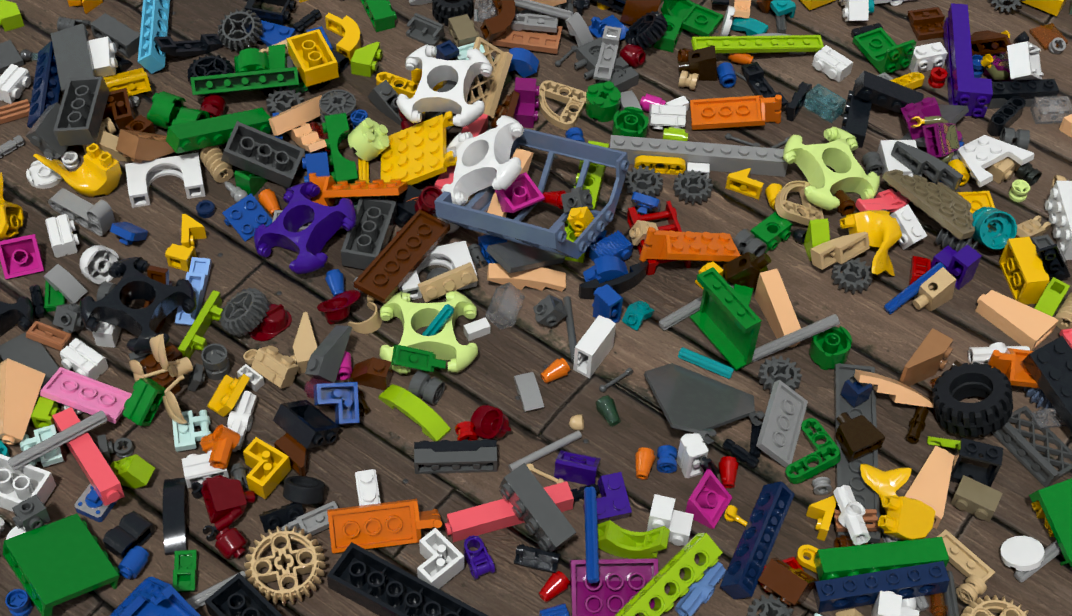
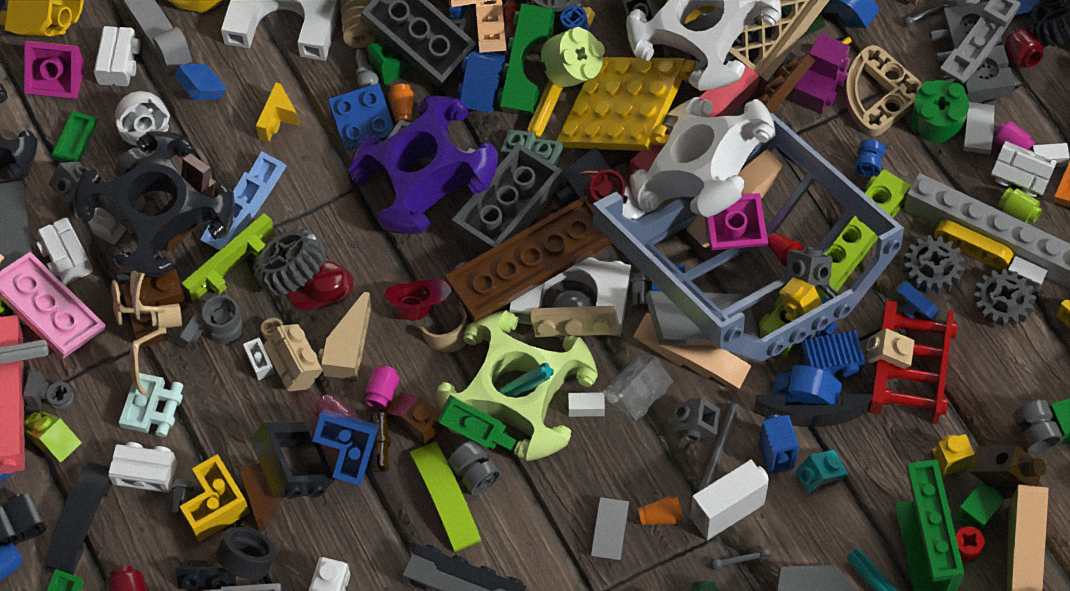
camera: 30 degrees right, 10 degrees up
(37, 301) = (47, 141): black axle -> none
(46, 336) = (22, 190): nougat tile -> none
(64, 282) = (88, 131): light grey slope -> none
(144, 401) = (106, 344): green brick -> none
(180, 256) = (249, 143): yellow brick -> none
(205, 209) = (315, 81): dark blue tile -> none
(221, 443) = (172, 444): orange piece -> none
(223, 501) = (142, 526): dark red torso -> none
(227, 394) = (216, 372): yellow bracket -> none
(241, 418) = (216, 417): white piece -> none
(327, 357) = (363, 372): dark grey slope -> none
(330, 190) = (524, 132): orange hinge -> none
(335, 281) = (431, 259): blue cone -> none
(465, 430) = (495, 556): red wheel -> none
(490, 422) = (533, 555): dark red piece -> none
(630, 123) = (959, 164): green brick -> none
(682, 313) = (902, 490): light grey axle -> none
(688, 246) = (944, 399): orange hinge -> none

